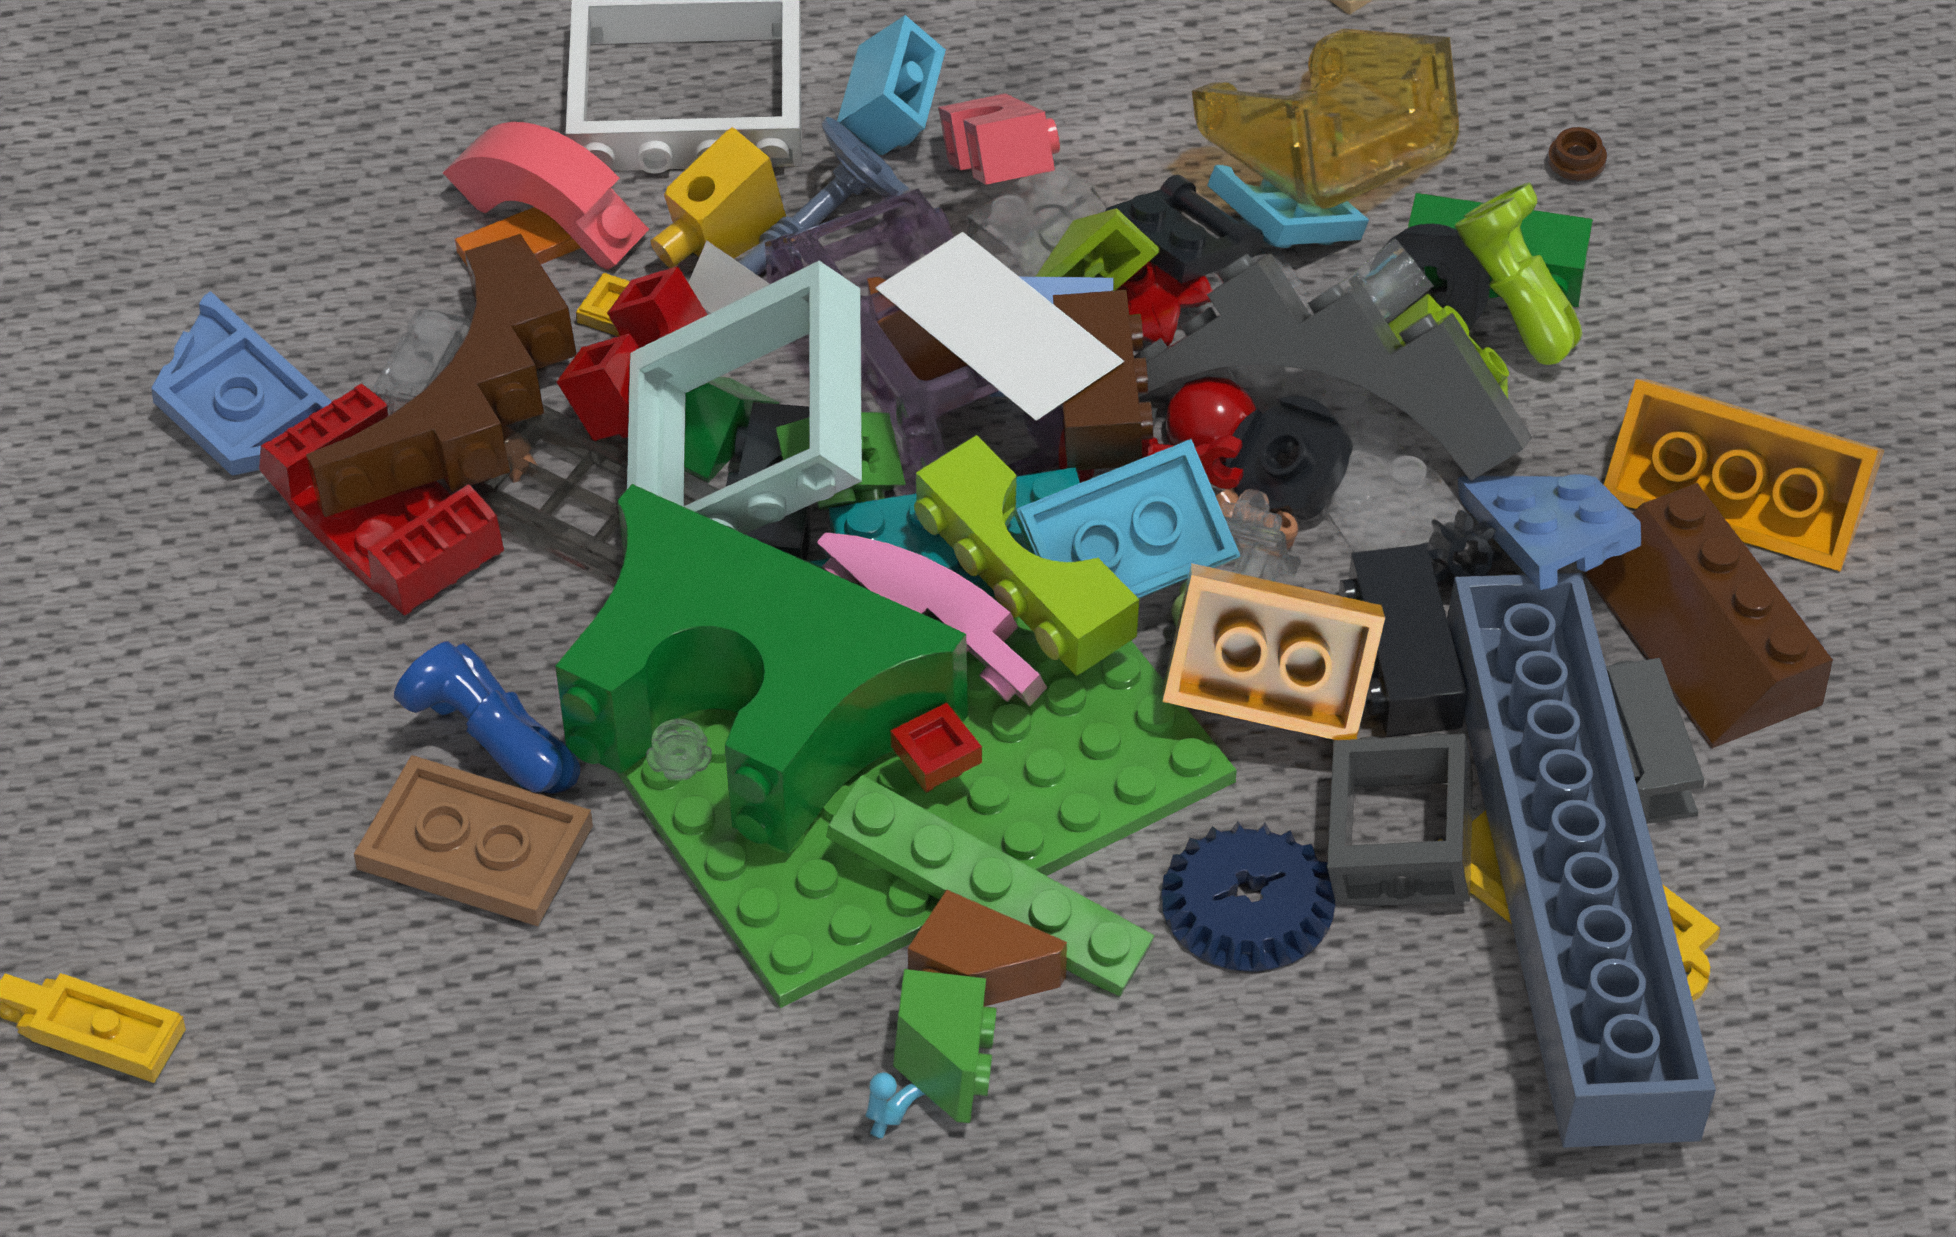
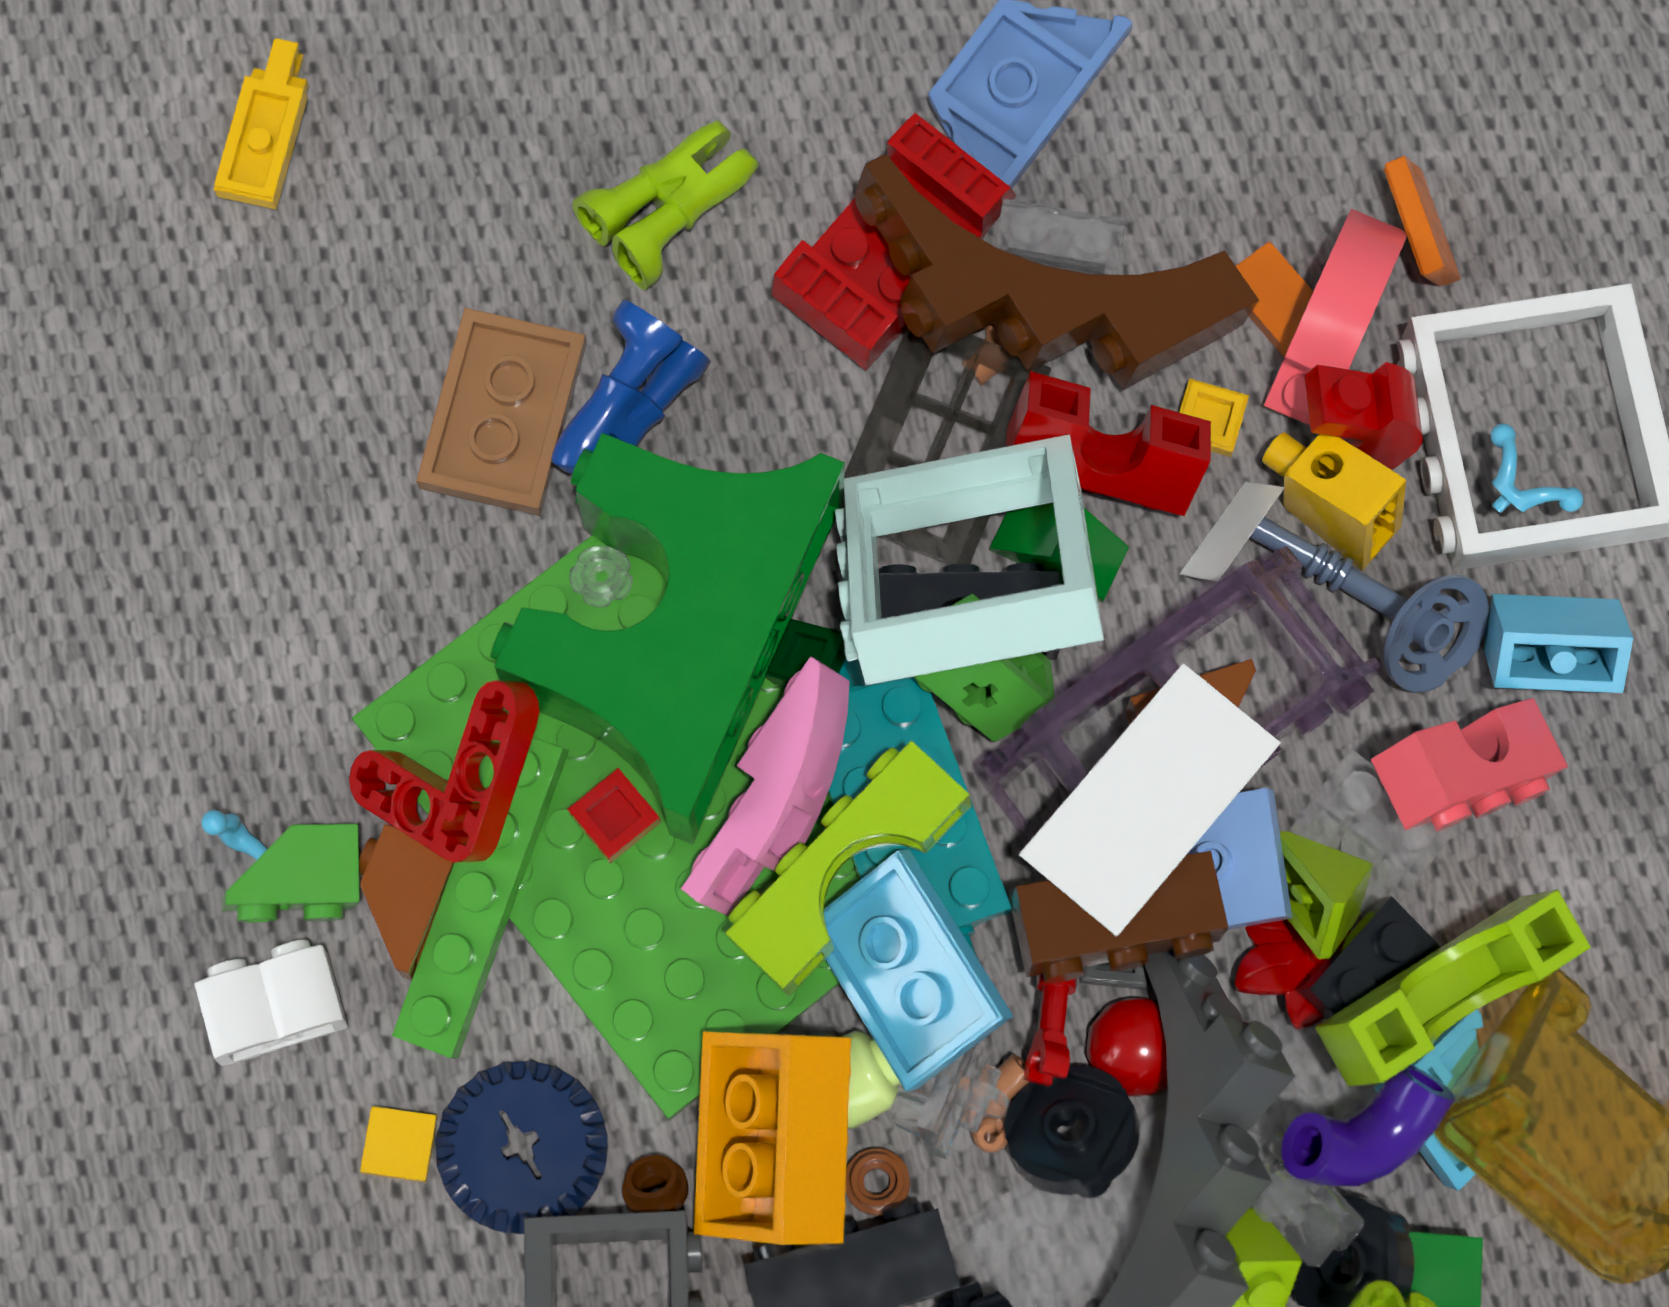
camera: 80 degrees right, 25 degrees up
(271, 673) = (678, 191): none -> lime piece
(458, 129) = (1421, 221): none -> orange tile
(649, 163) = (1367, 410): none -> red brick
(763, 52) = (1504, 437): none -> medium azure piece
(901, 874) = (452, 801): none -> red beam
(1076, 1085) = (270, 1003): none -> white brick
(1230, 195) = (1415, 1007): none -> lime arch
(1234, 998) = (399, 1144): none -> yellow tile
(1302, 785) = (653, 1173): none -> reddish brown plate
(1321, 219) = (1372, 1140): none -> dark purple cylinder

